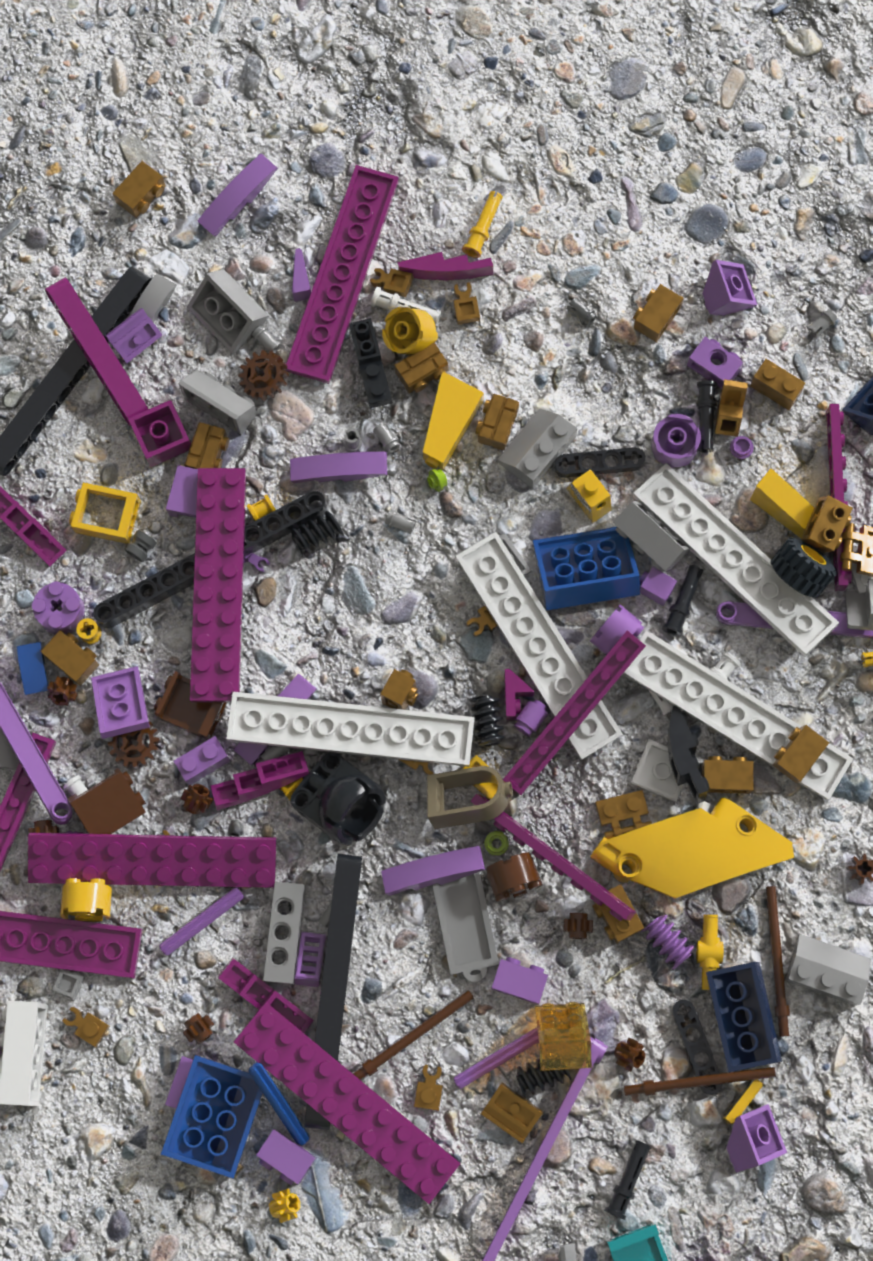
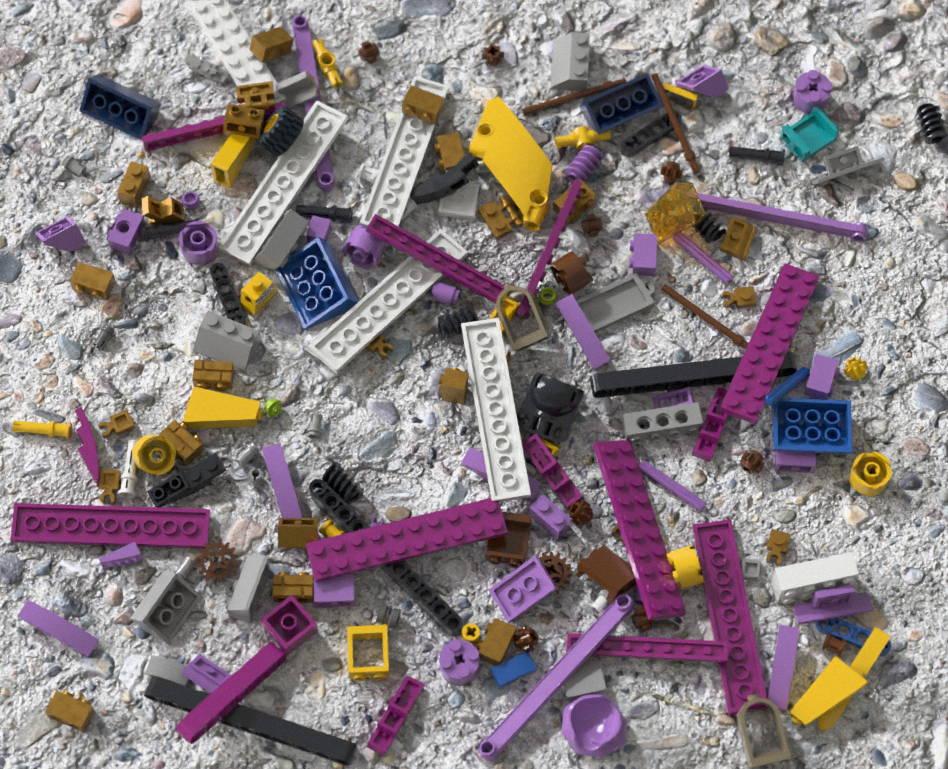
camera: 110 degrees left, 10 degrees down
(122, 1169) = (860, 474): none -> yellow brick
(268, 468) = (297, 532): none -> pearl gold brick
(514, 688) = (428, 312): magenta slope -> none

